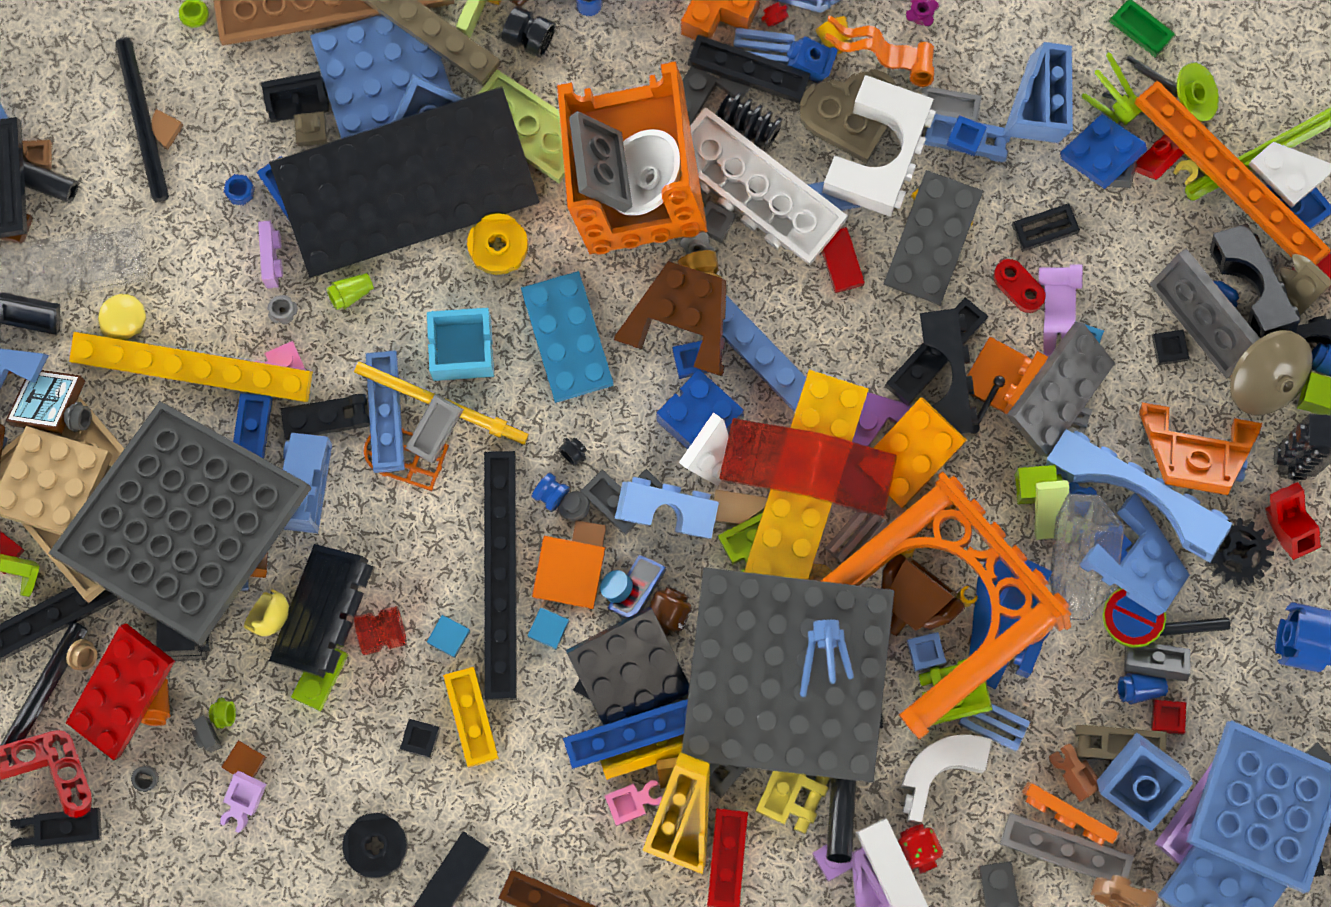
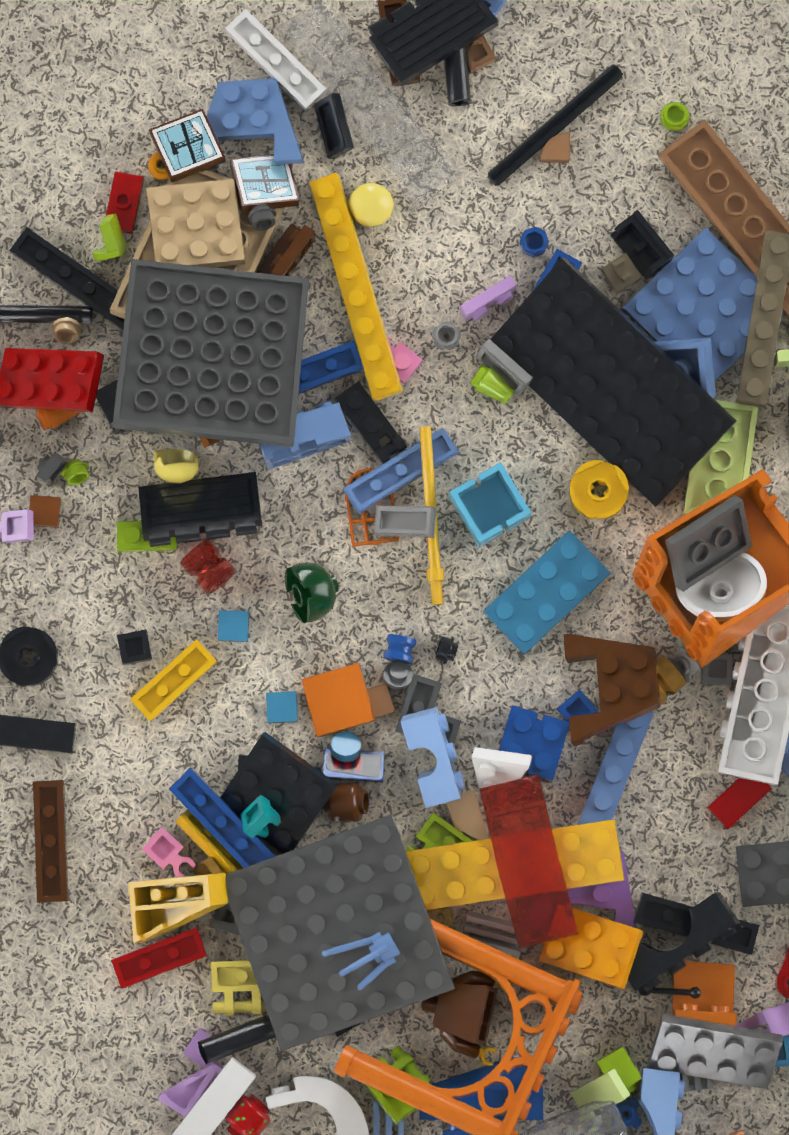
camera: 60 degrees right, 5 degrees up
(122, 410) = (288, 251): none -> reddish brown bracket
(338, 269) = (507, 368): none -> light grey tile
(453, 545) = (312, 590): none -> dark green cylinder
(500, 576) = (307, 643): black plate -> none
(642, 695) = (257, 816): none -> teal tile
(926, 651) = (421, 1043): medium blue plate -> none

